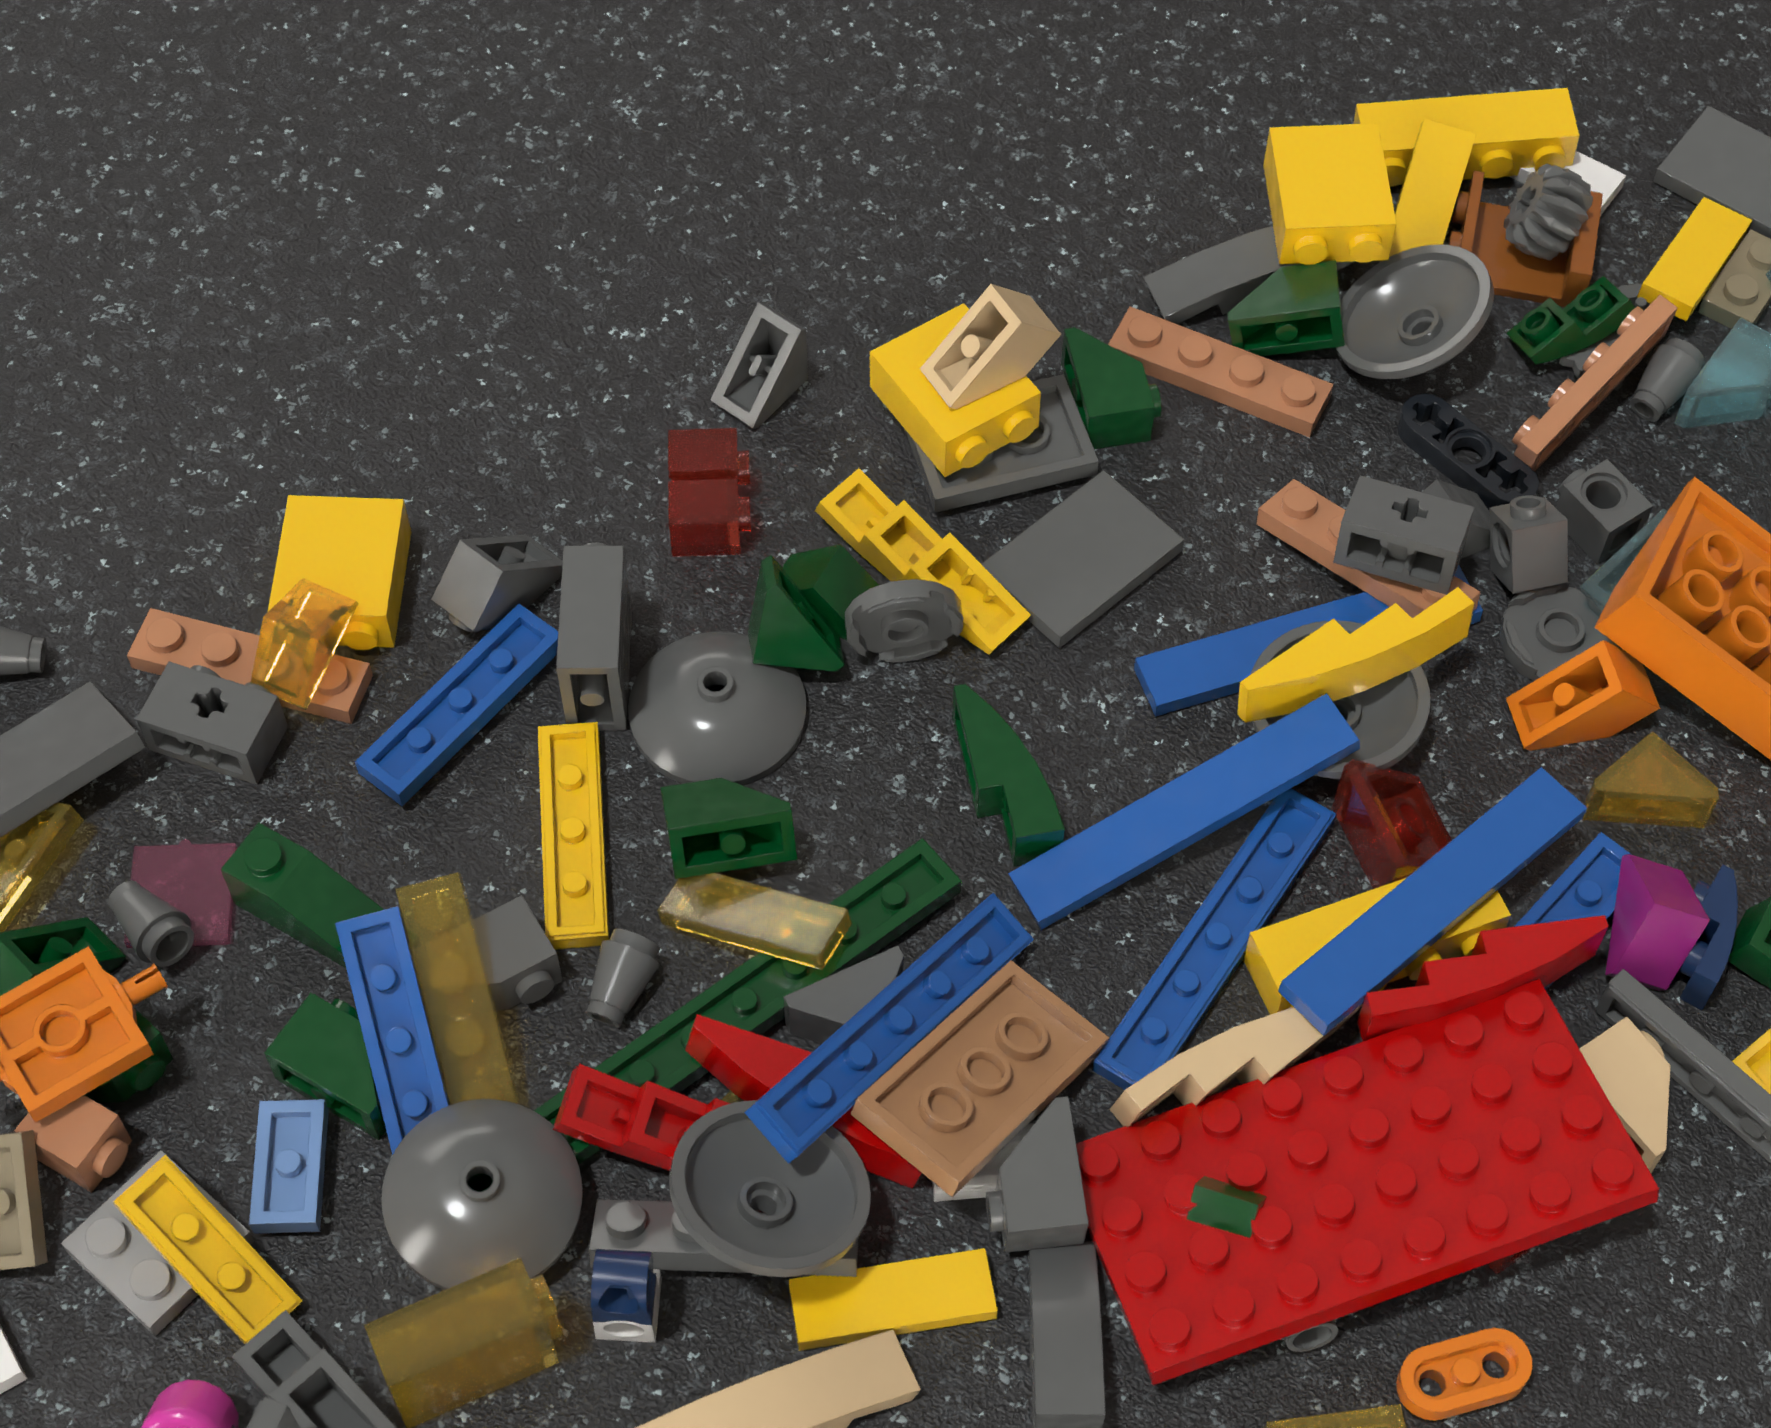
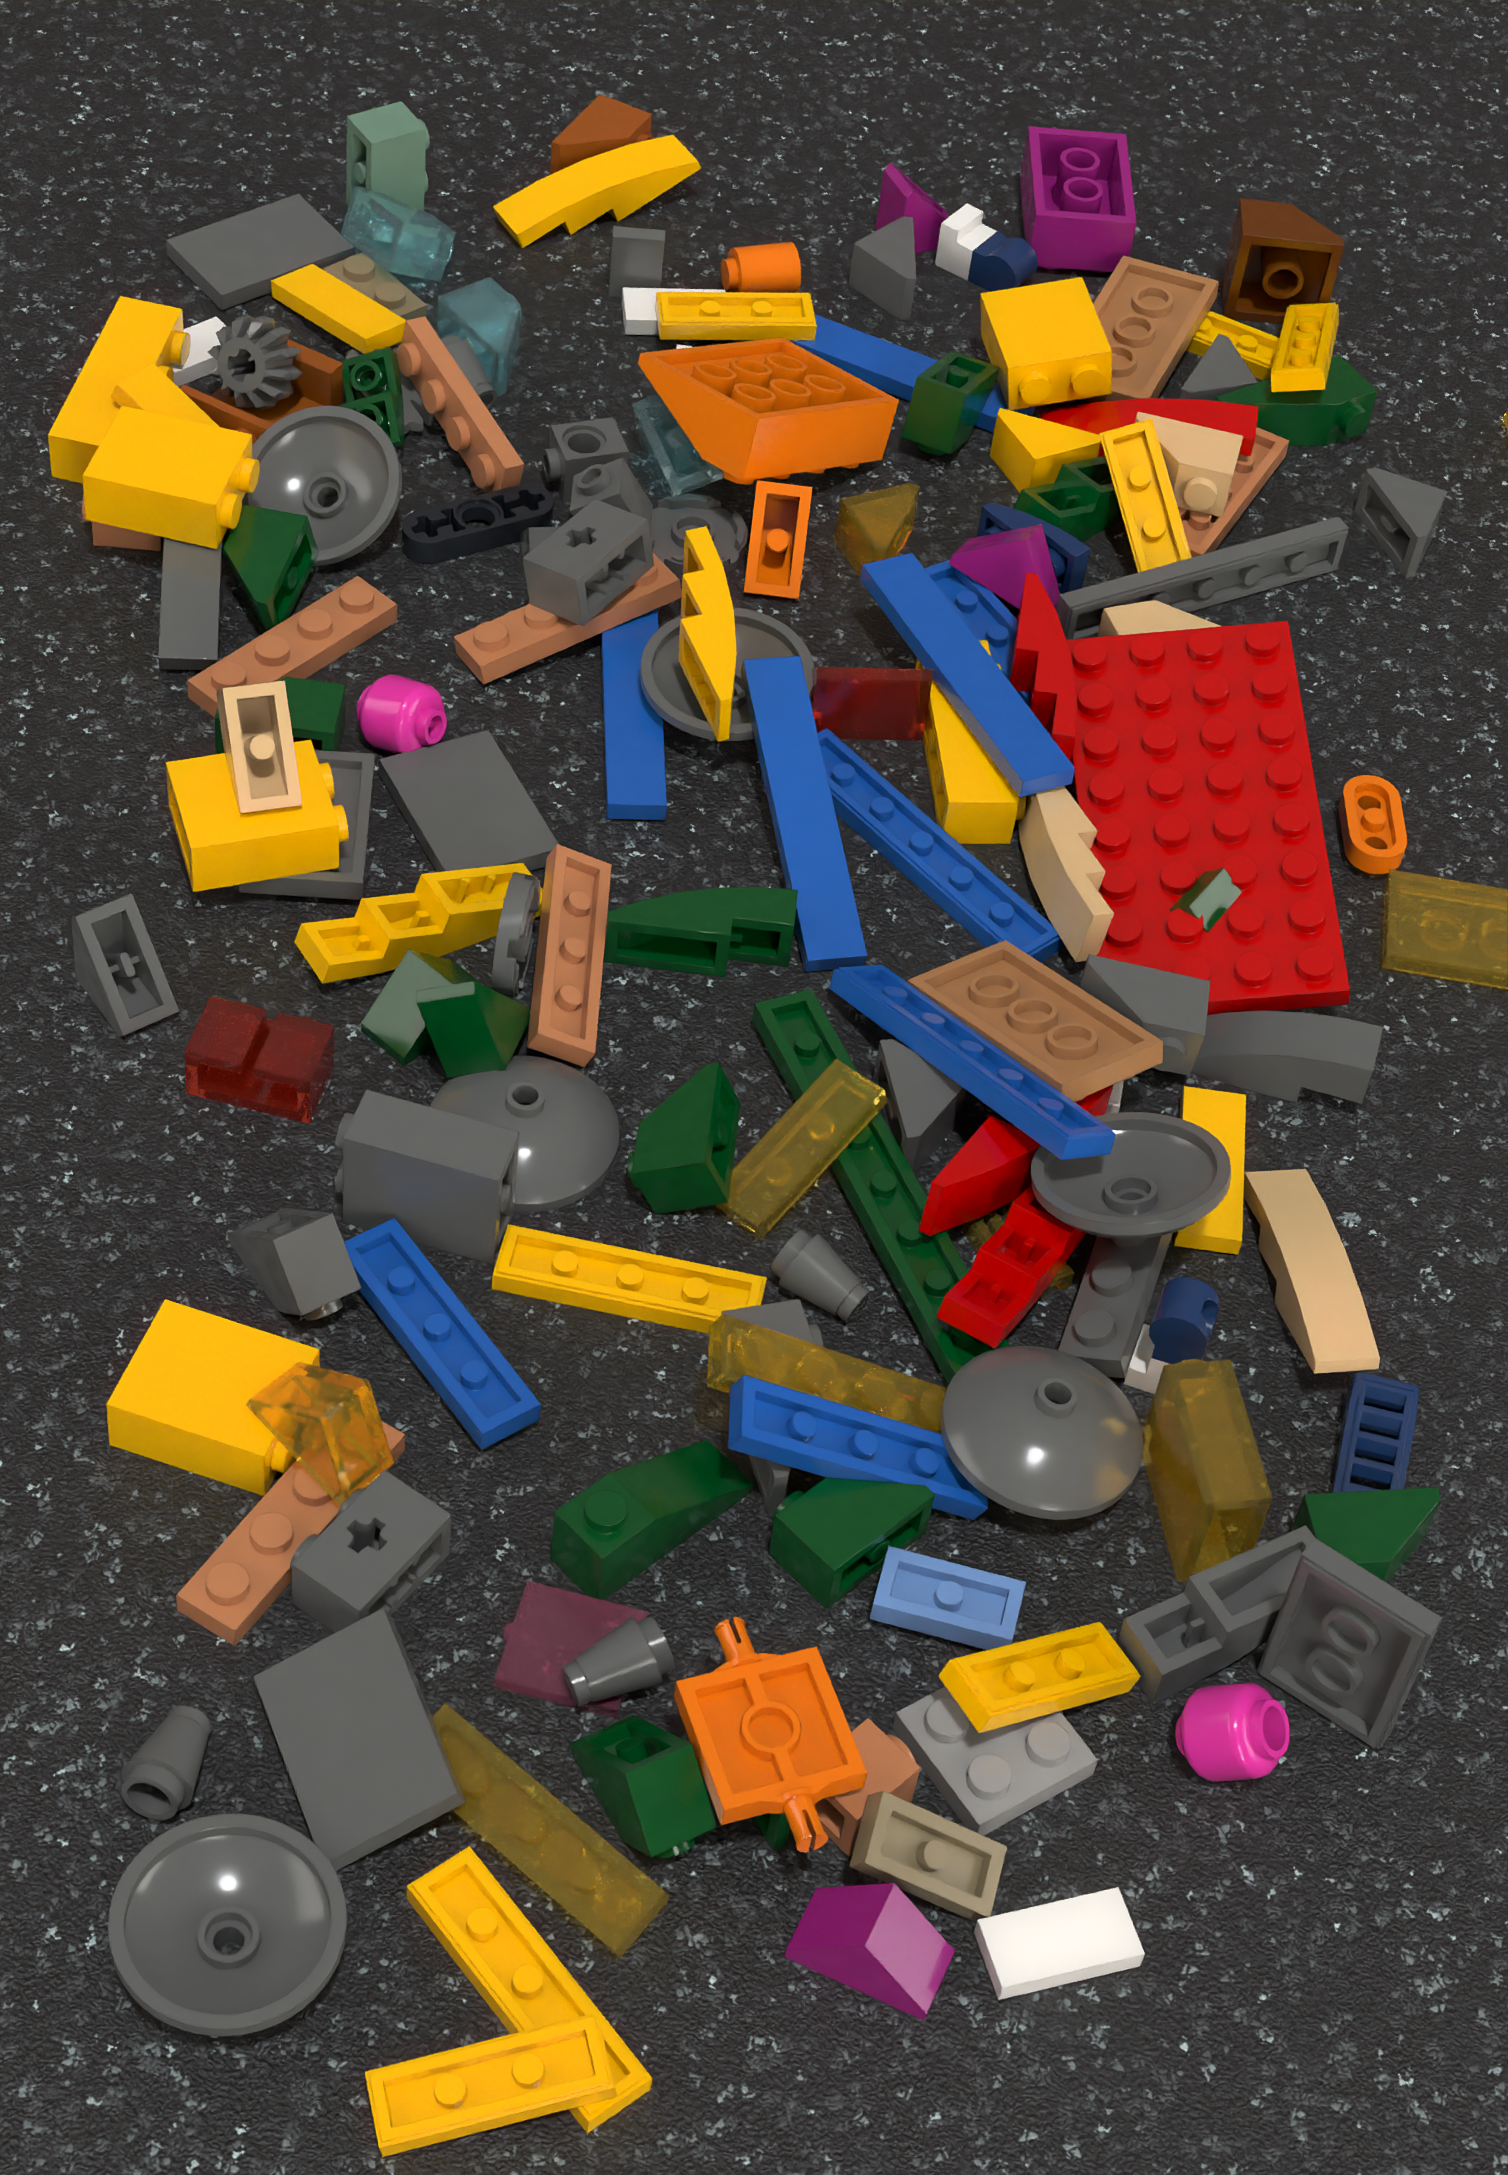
camera: 80 degrees left, 10 degrees down
(922, 677) = (570, 956): none -> nougat plate
(1160, 463) = (401, 714): none -> dark pink head

